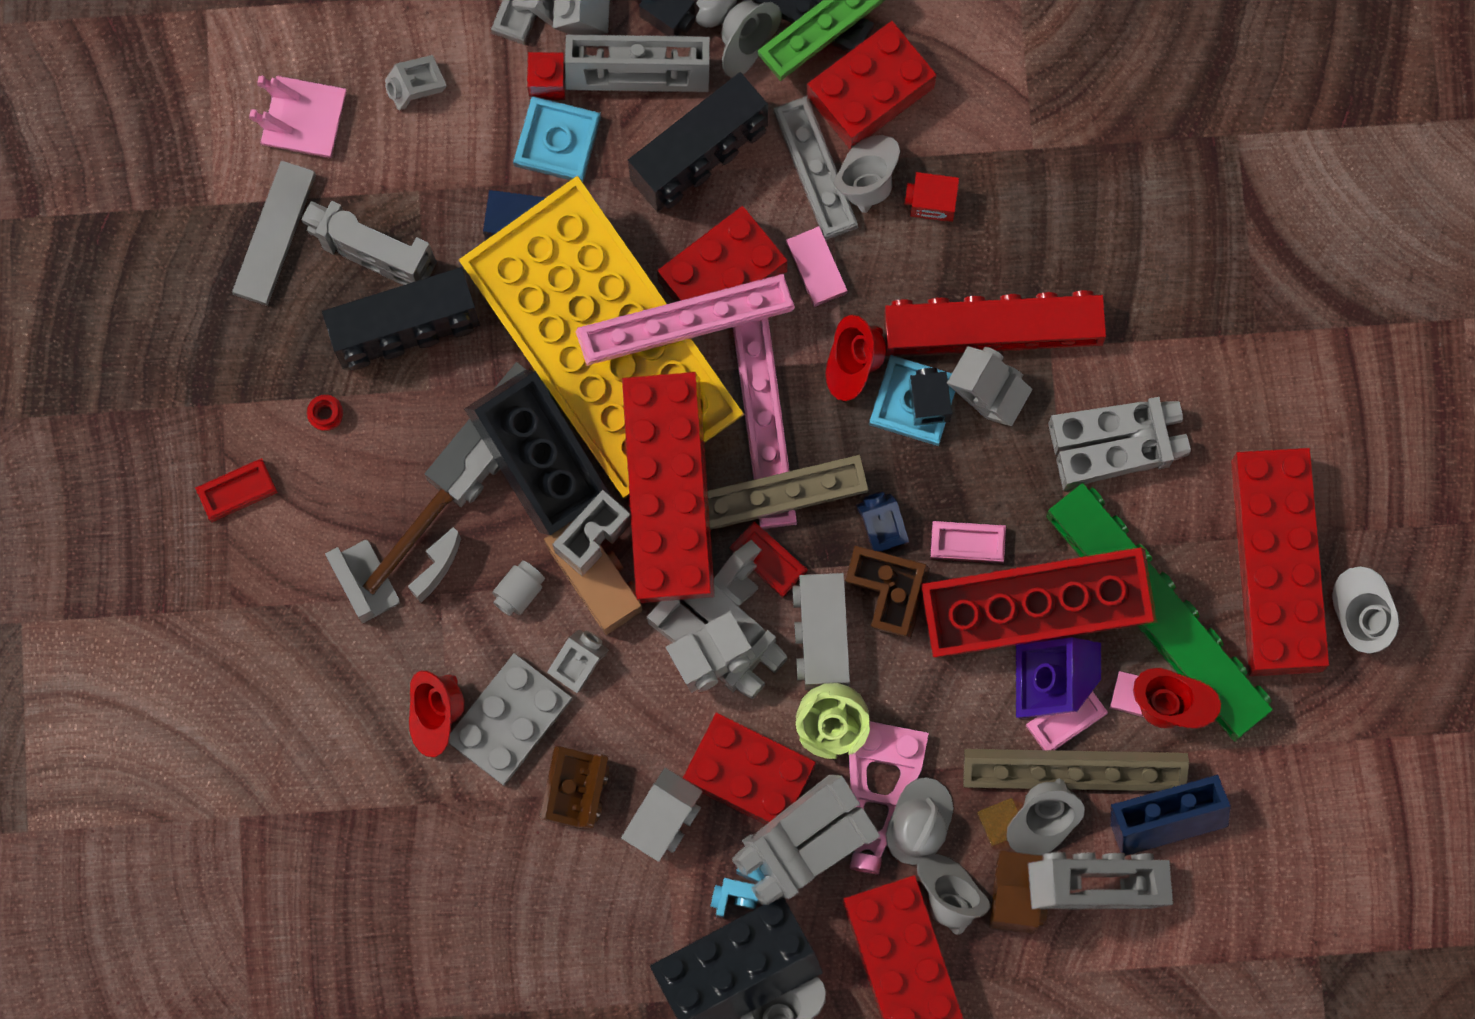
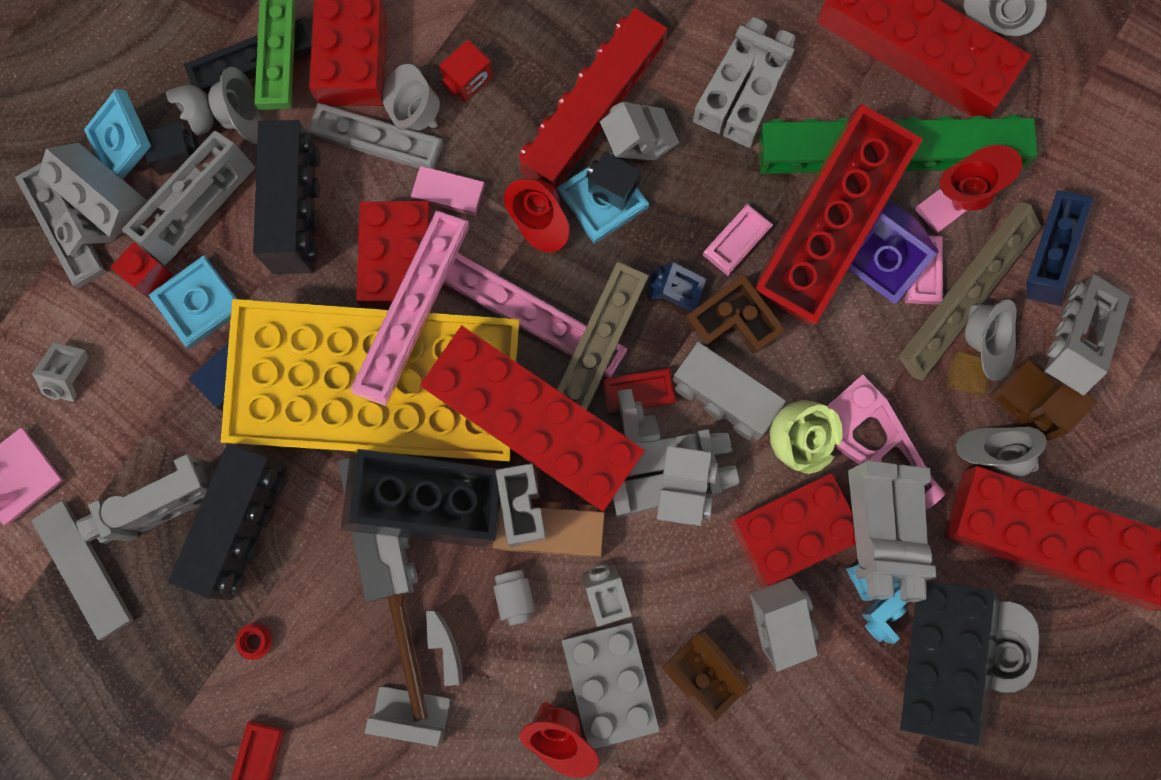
camera: 50 degrees left, 0 degrees up
(919, 820) = (929, 433): light grey piece -> none

